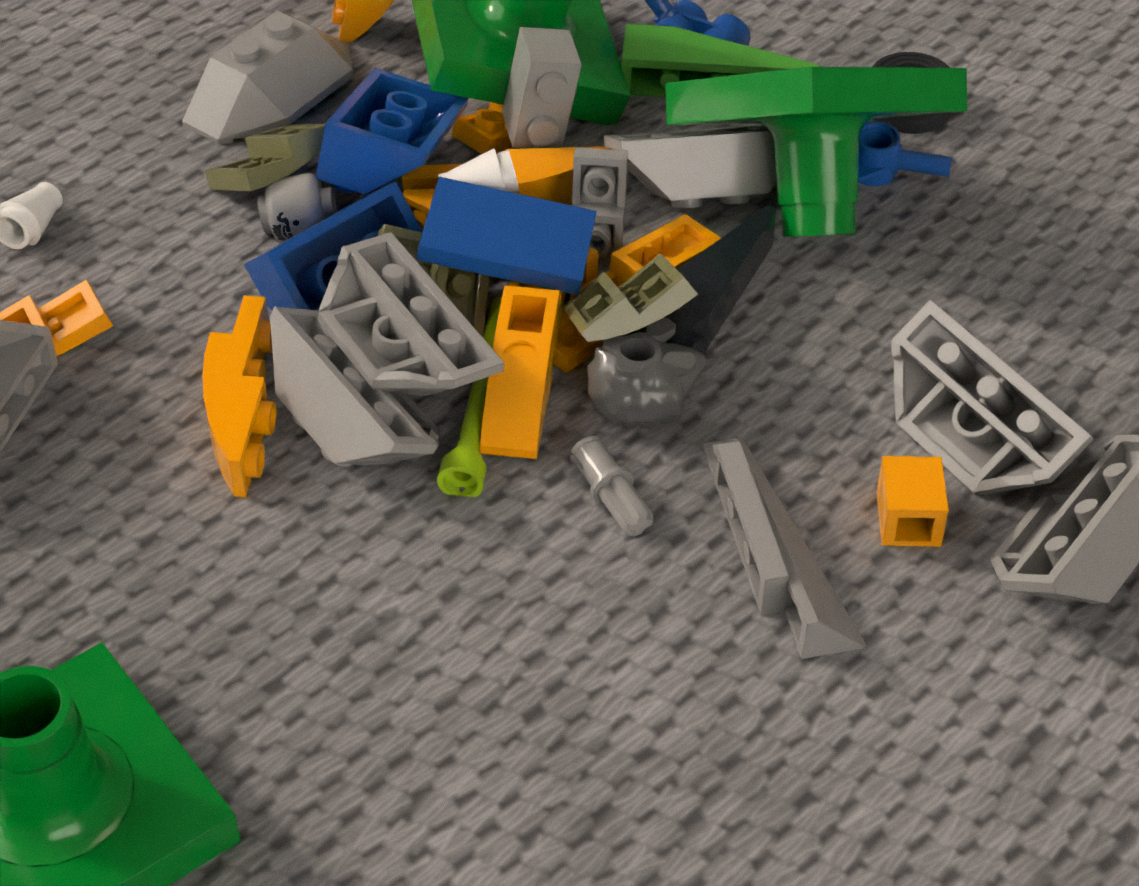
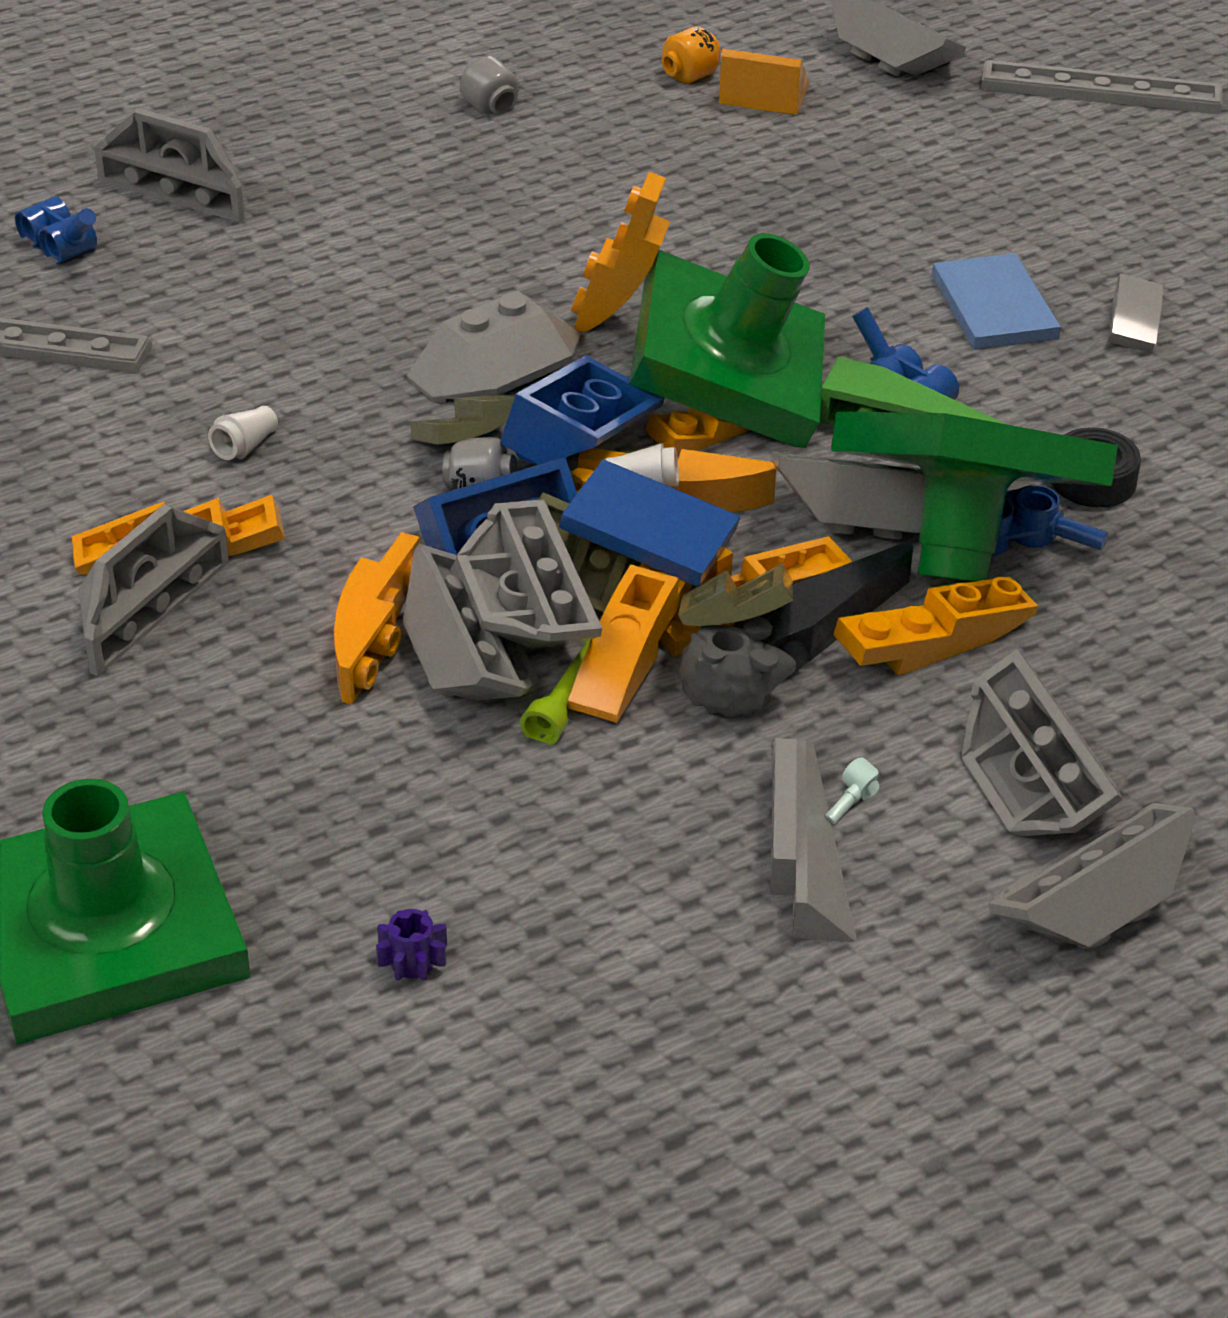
camera: 15 degrees right, 5 degrees down
(411, 763) = (411, 944): none -> dark purple gear
(541, 88) = (728, 398): light grey brick -> none
(601, 187) = (755, 497): light grey slope -> none
(611, 485) = (674, 757): light grey axle -> none
(810, 470) = (862, 784): none -> light aqua hand
(828, 288) = (946, 624): none -> light orange slope
(912, 501) = (942, 824): light orange brick -> none

